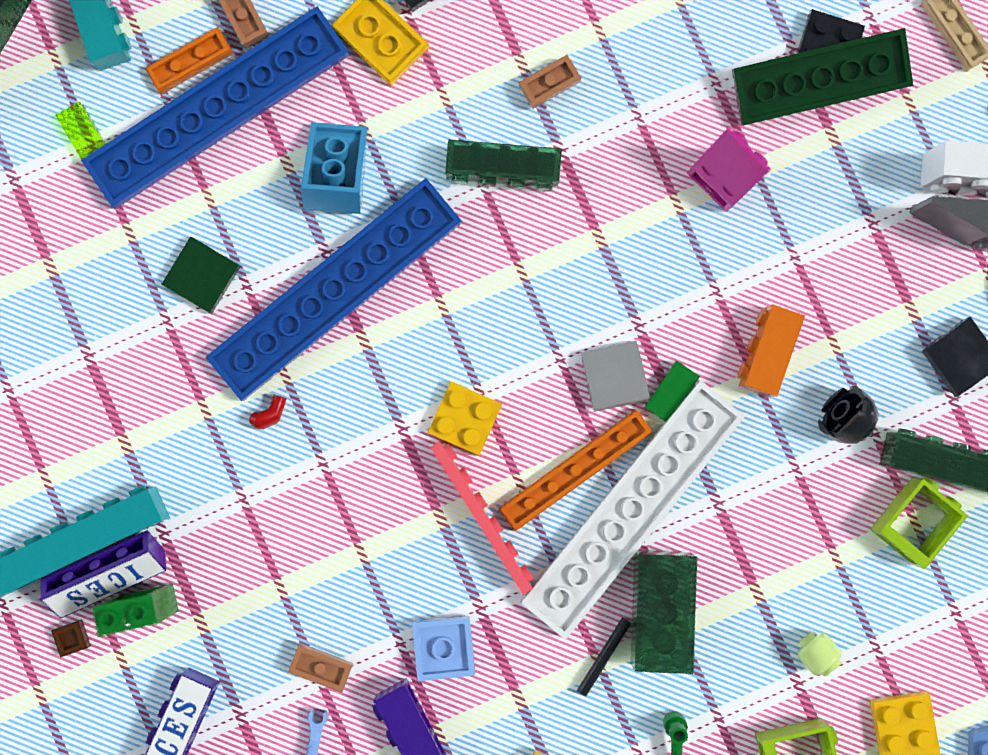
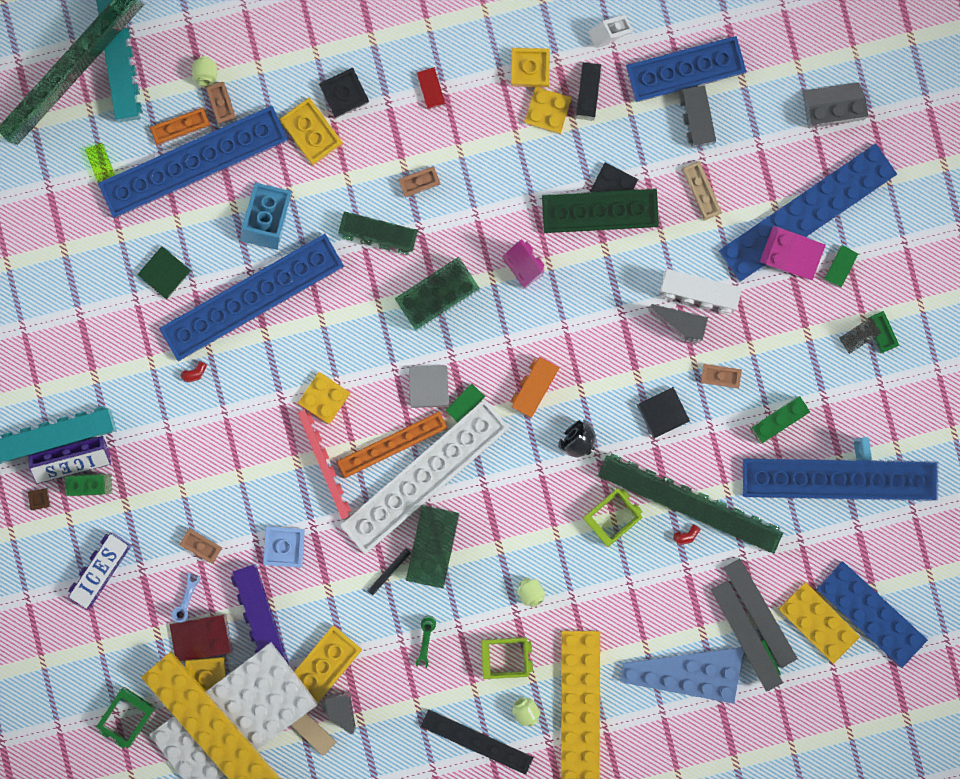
camera: 15 degrees right, 0 degrees up
(606, 237) = (437, 294): none -> clear green brick

